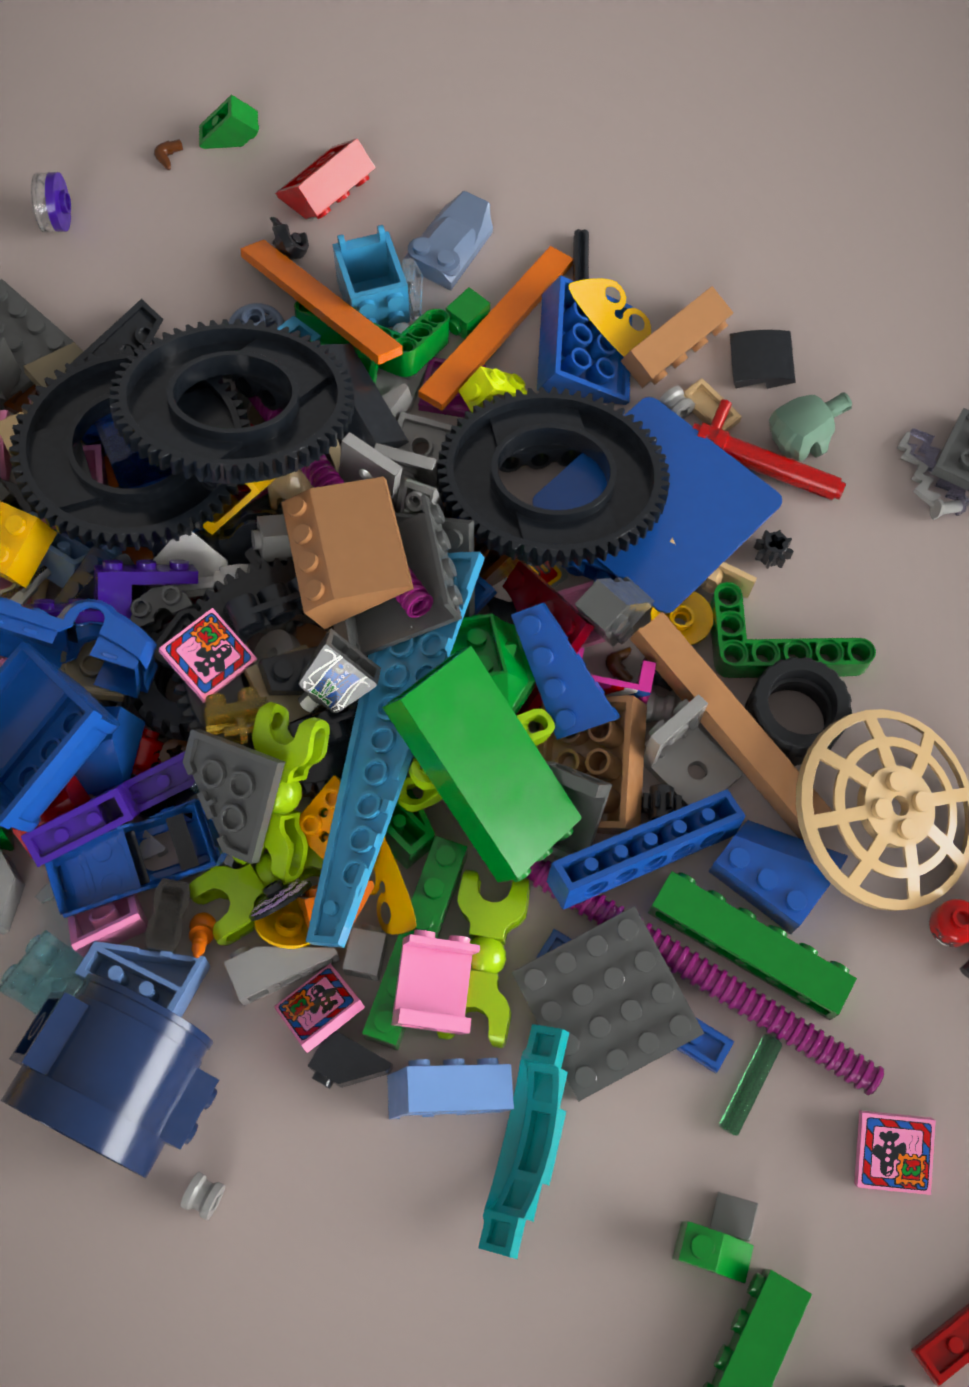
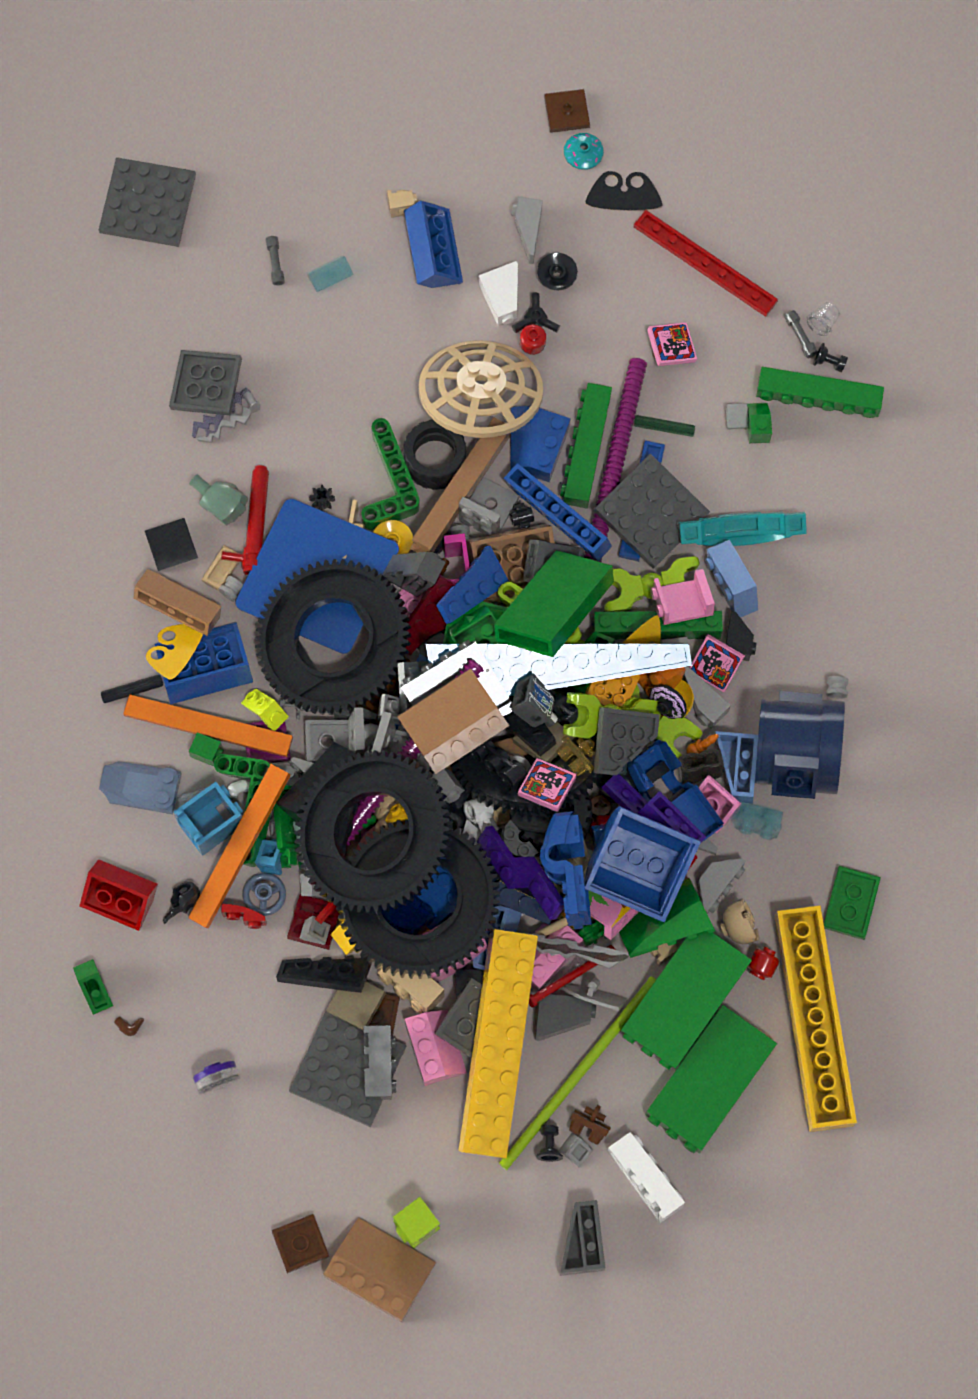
camera: 110 degrees left, 5 degrees up
(237, 295) = (250, 917): none -> red slope

